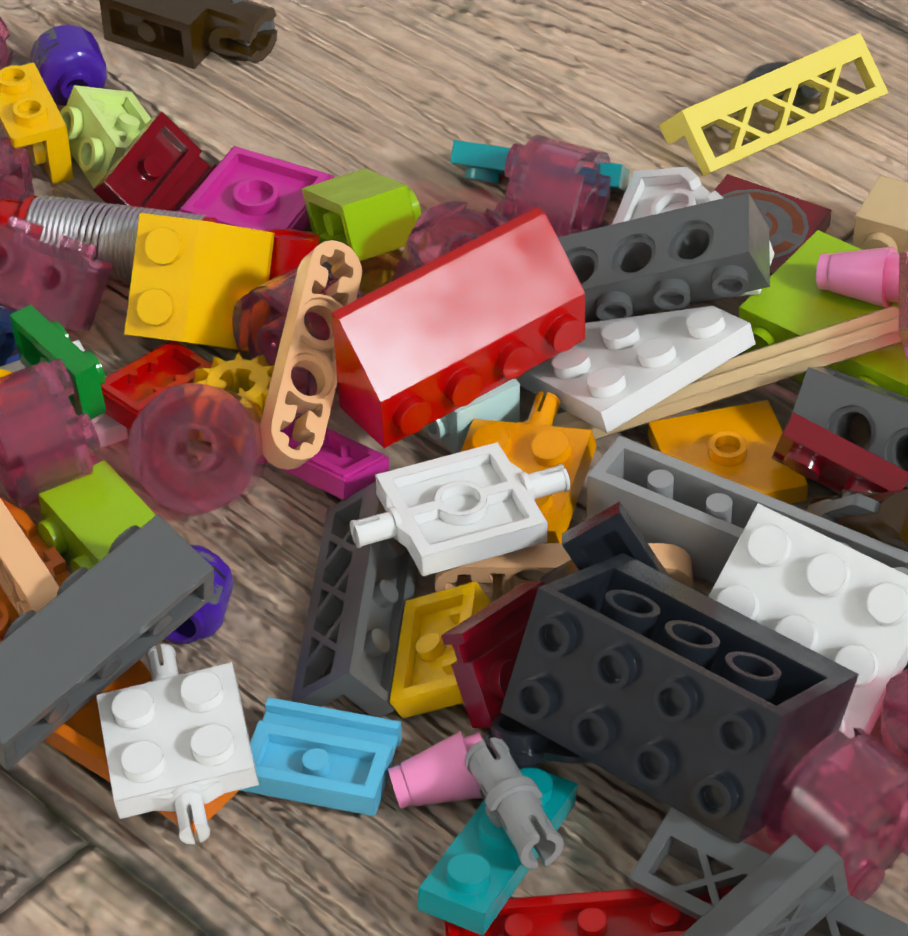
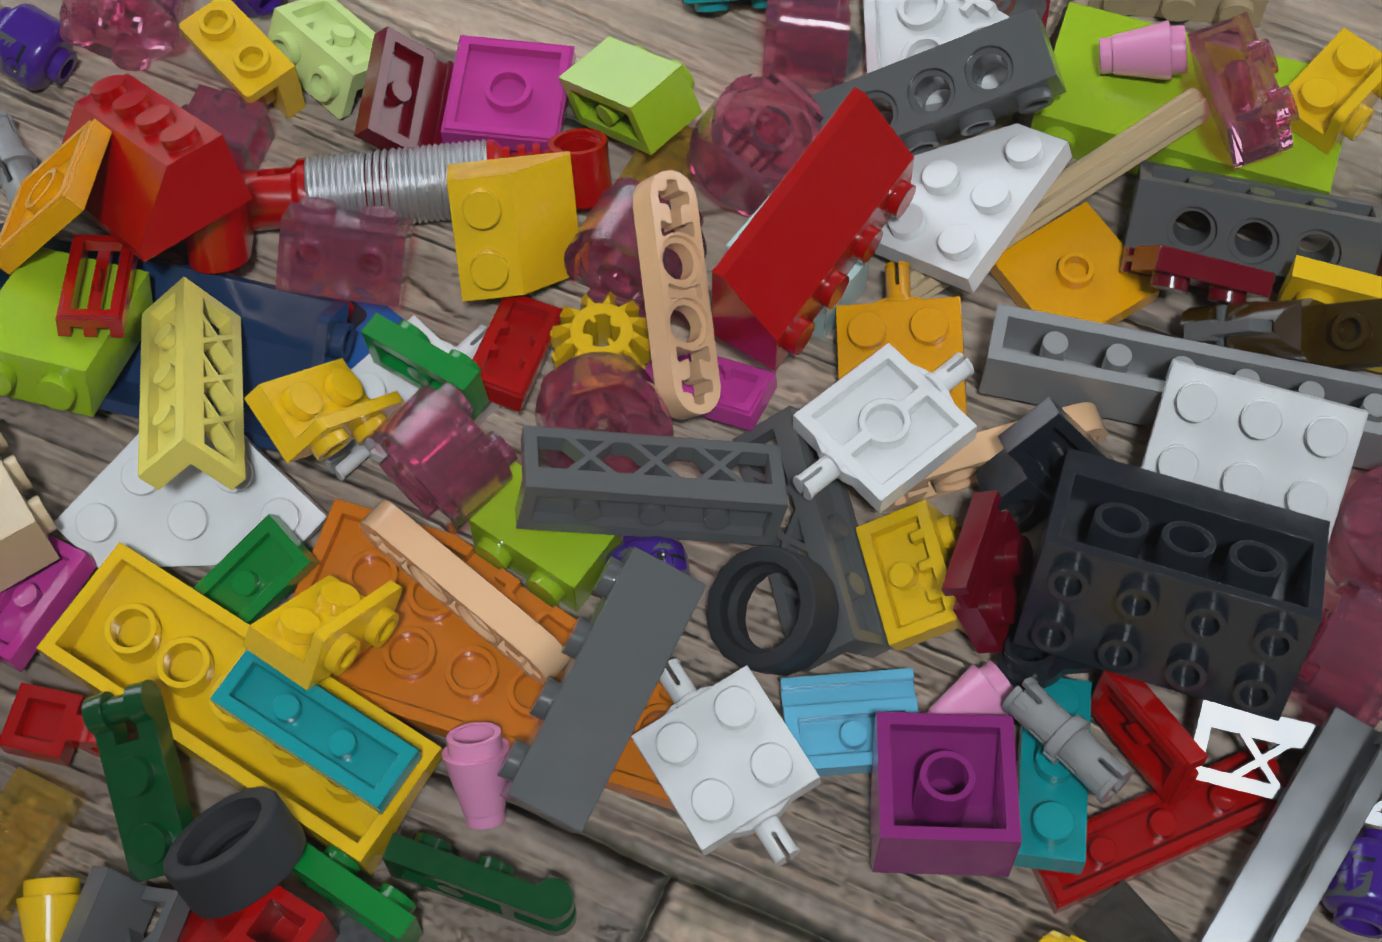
camera: 20 degrees left, 20 degrees up
(208, 506) = (654, 498): none -> dark grey fence
(306, 657) = (729, 604): none -> black tyre
(370, 825) = (944, 794): none -> magenta slope
(604, 831) = (1147, 734): none -> red tile

